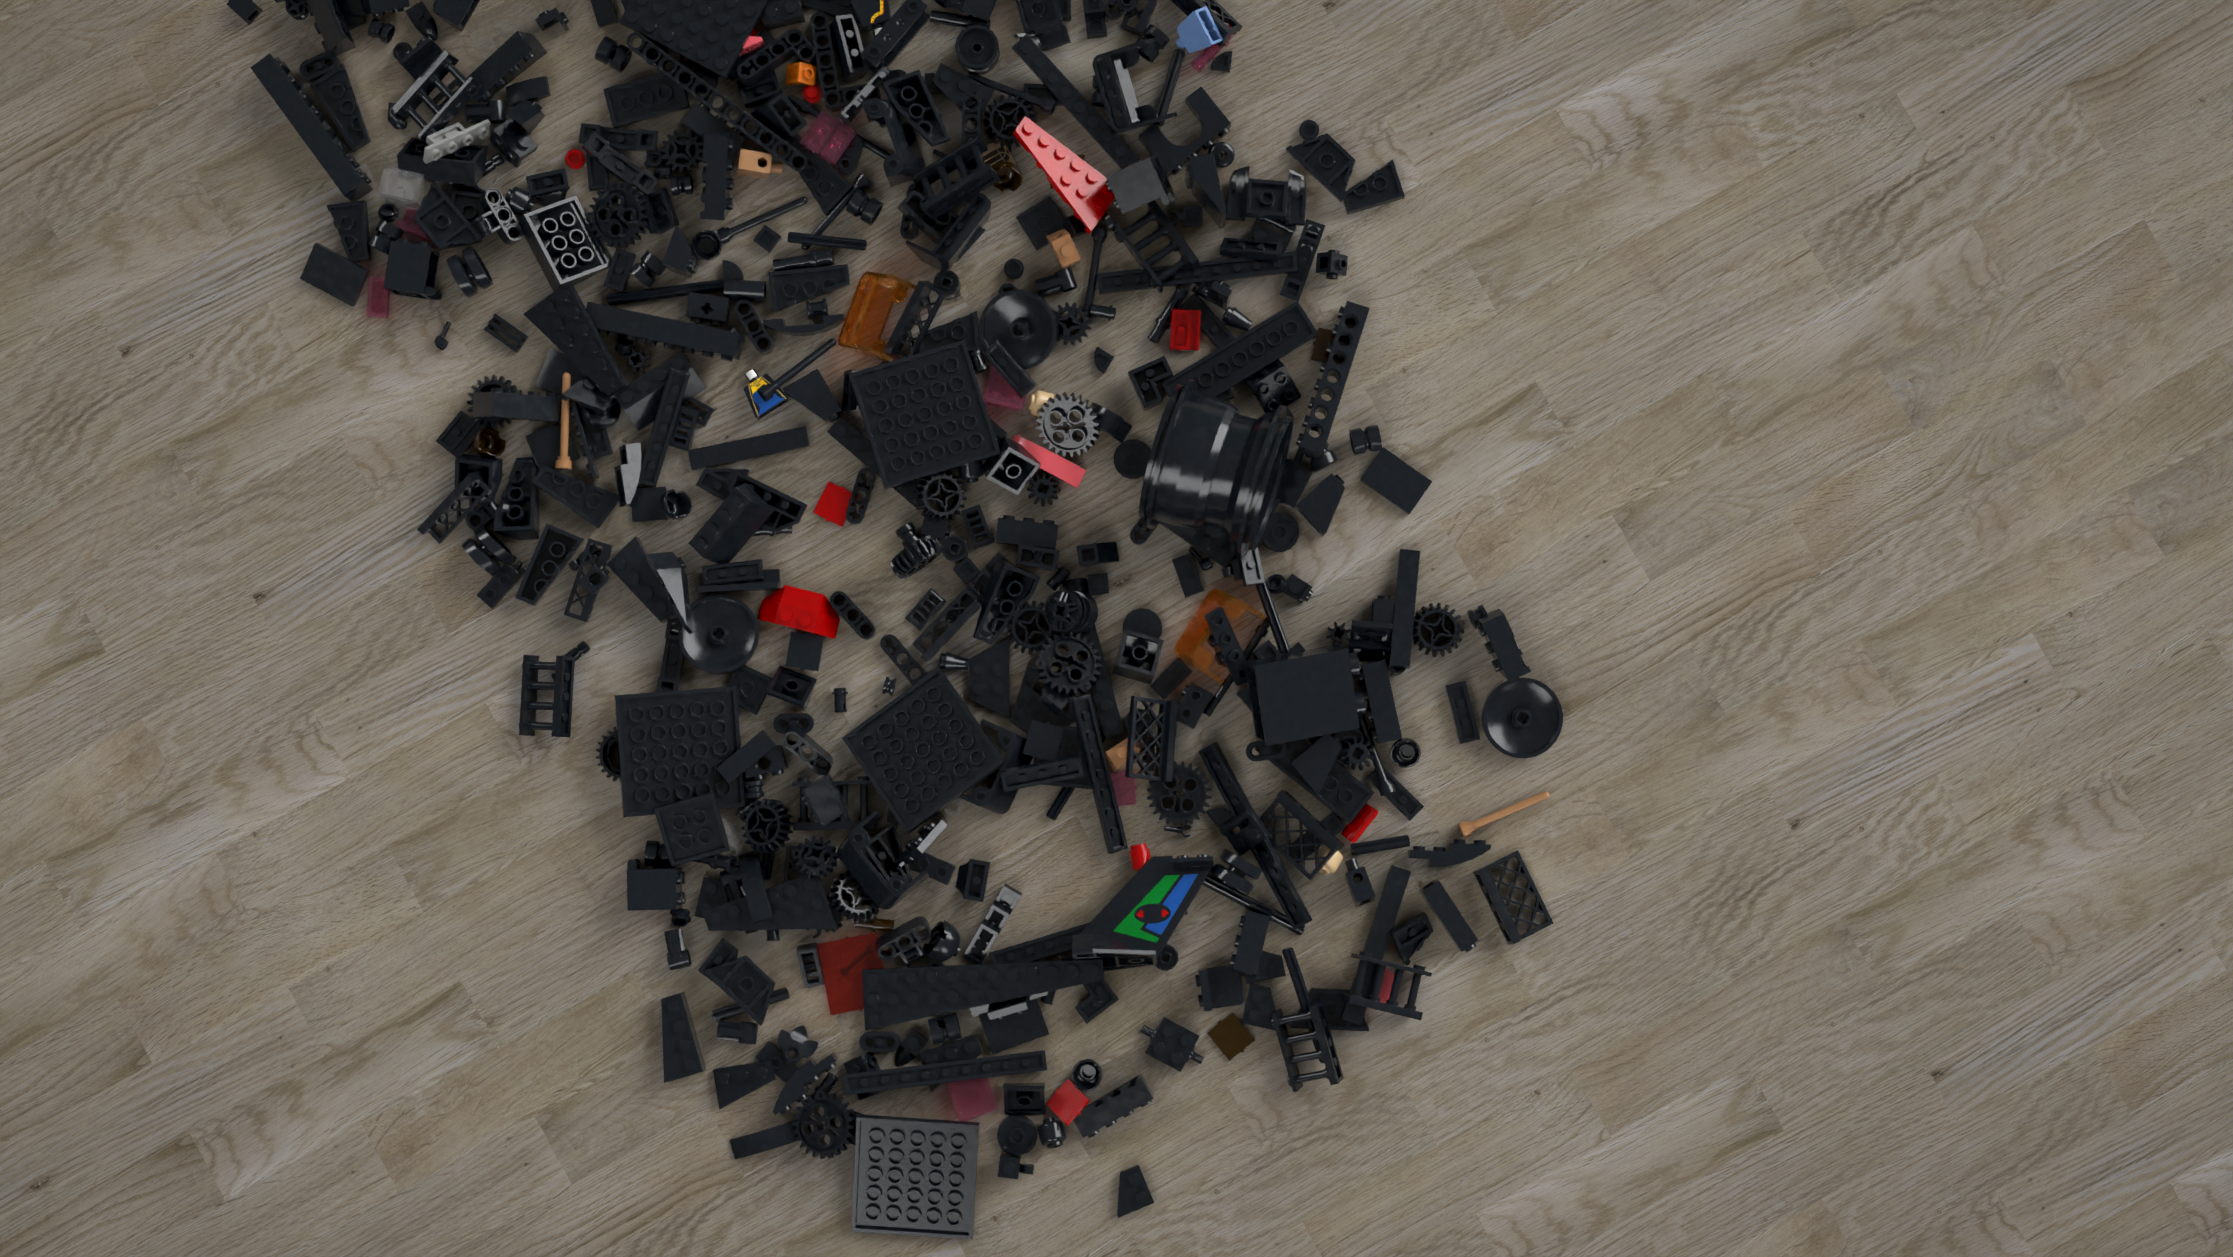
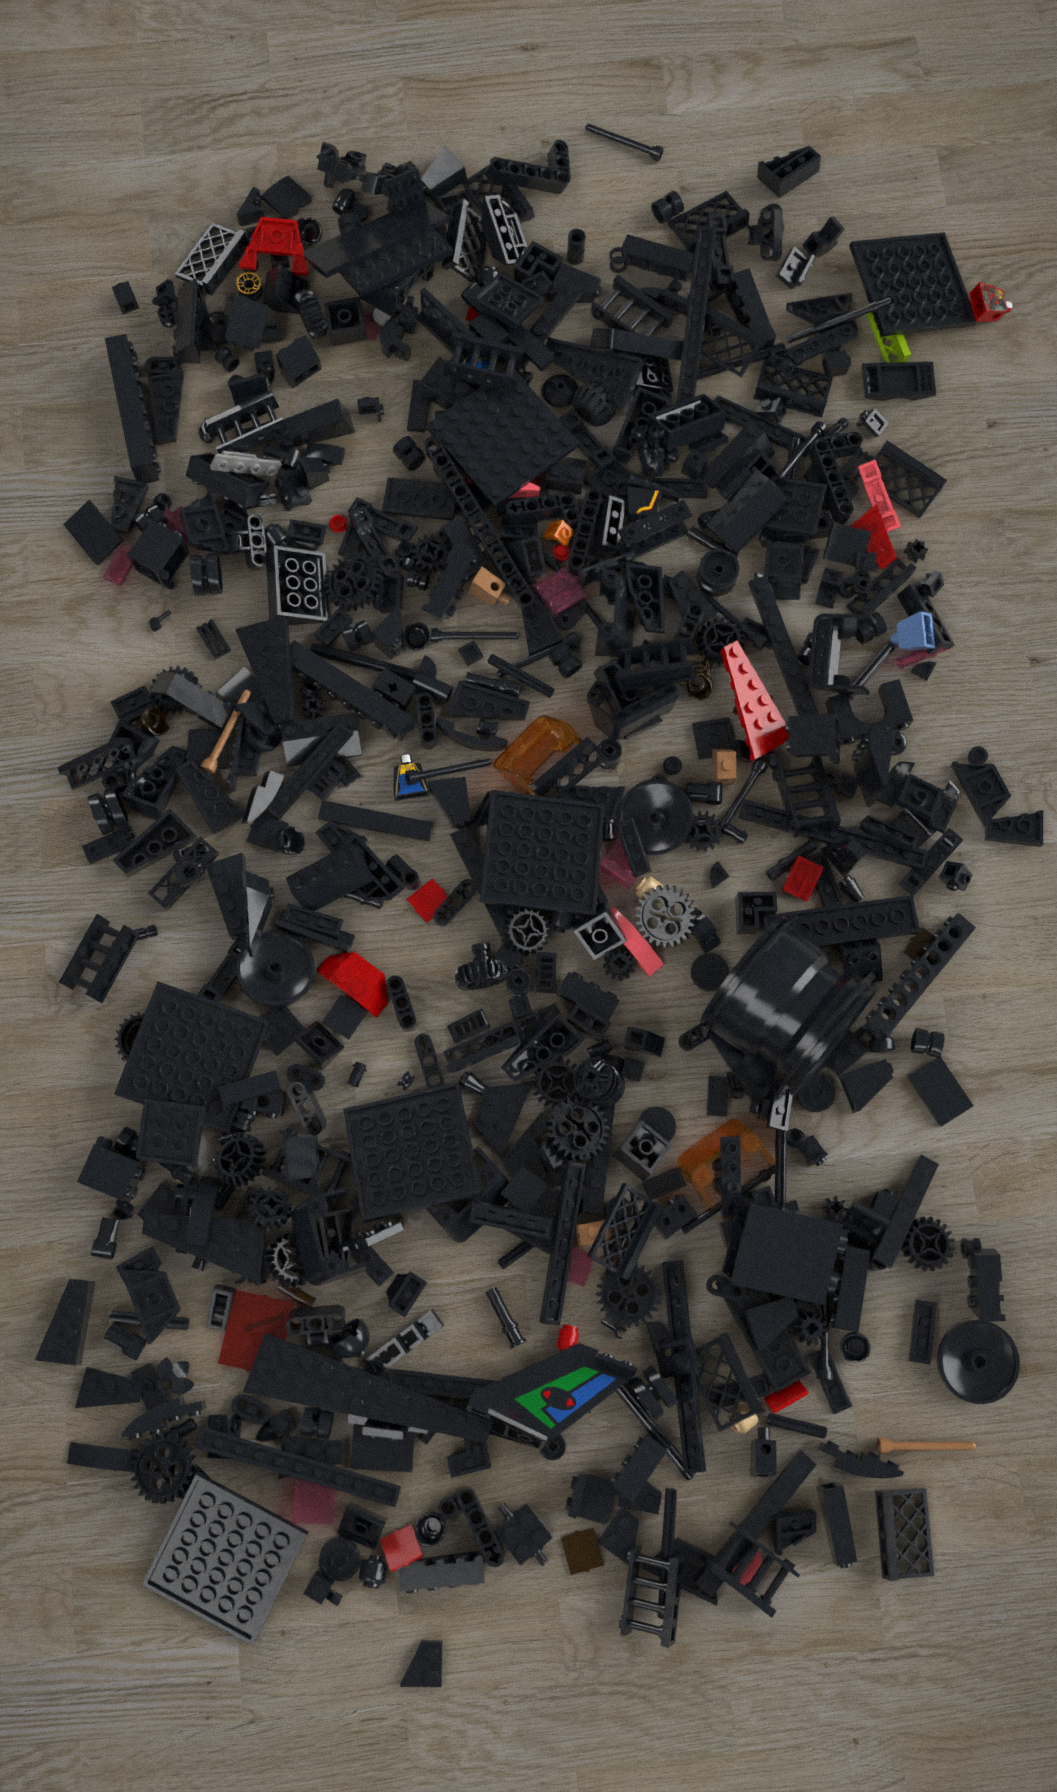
camera: 15 degrees right, 10 degrees down
(401, 188) = (181, 485): clear slope -> none
(797, 487) = (403, 871): none -> black piece
(1082, 869) = (510, 1327): none -> black pin
(1127, 1056) = (476, 1527): none -> black beam

